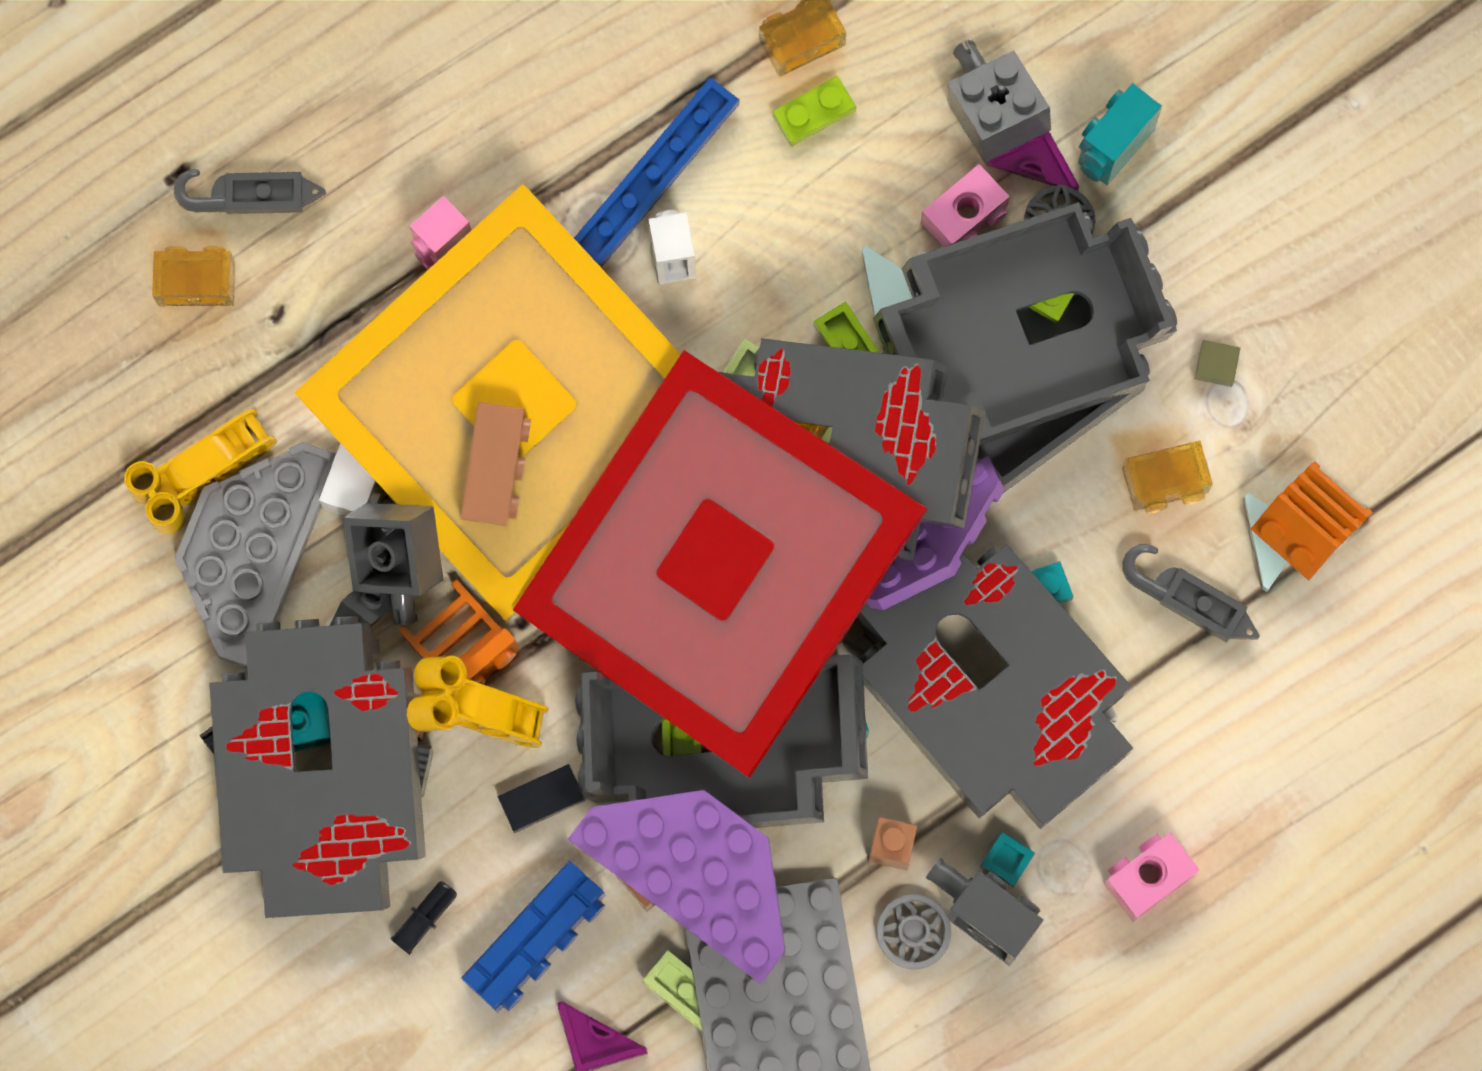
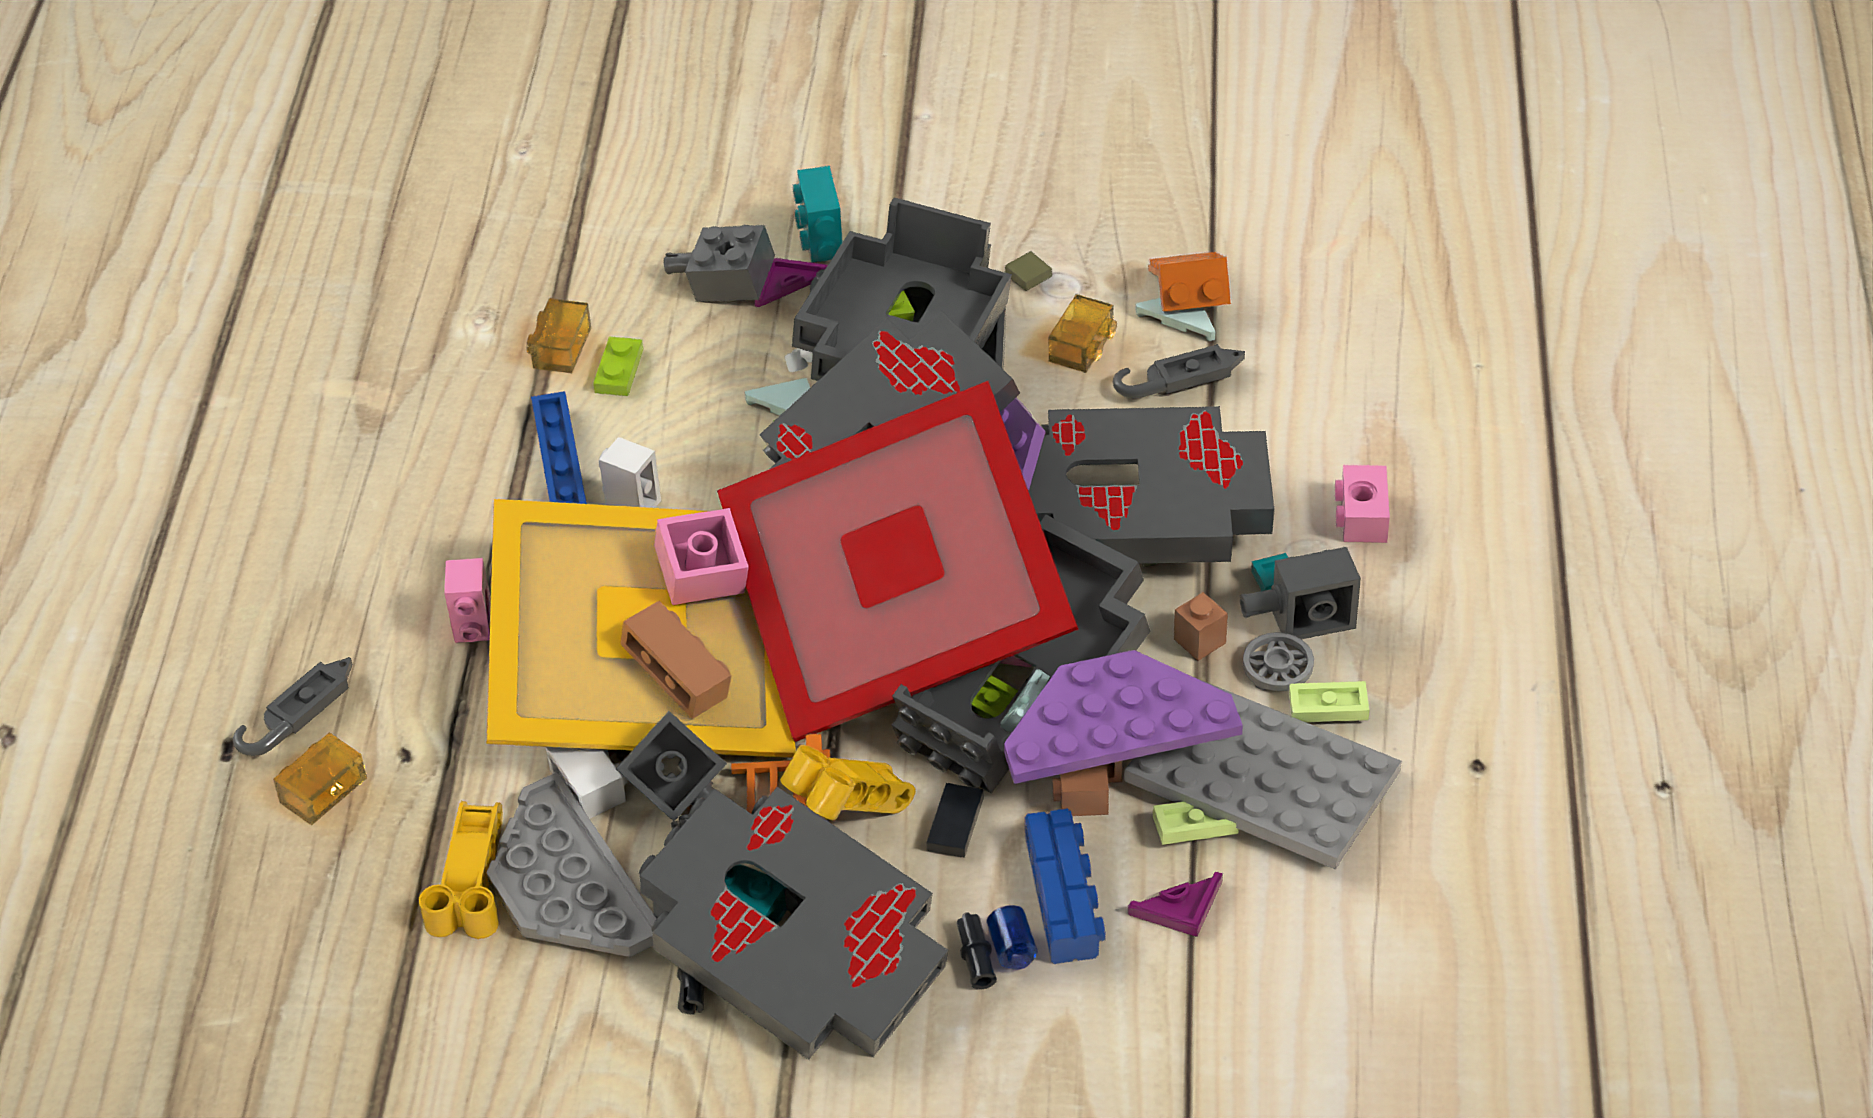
camera: 50 degrees left, 30 degrees down
(452, 939) = (1012, 937): none -> clear blue brick
(604, 397) = (701, 556): none -> bright pink brick
(671, 776) = (1024, 700): none -> light aqua tile
(897, 1008) = (1329, 701): none -> yellowish green plate
(974, 190) = (776, 323): bright pink brick -> none

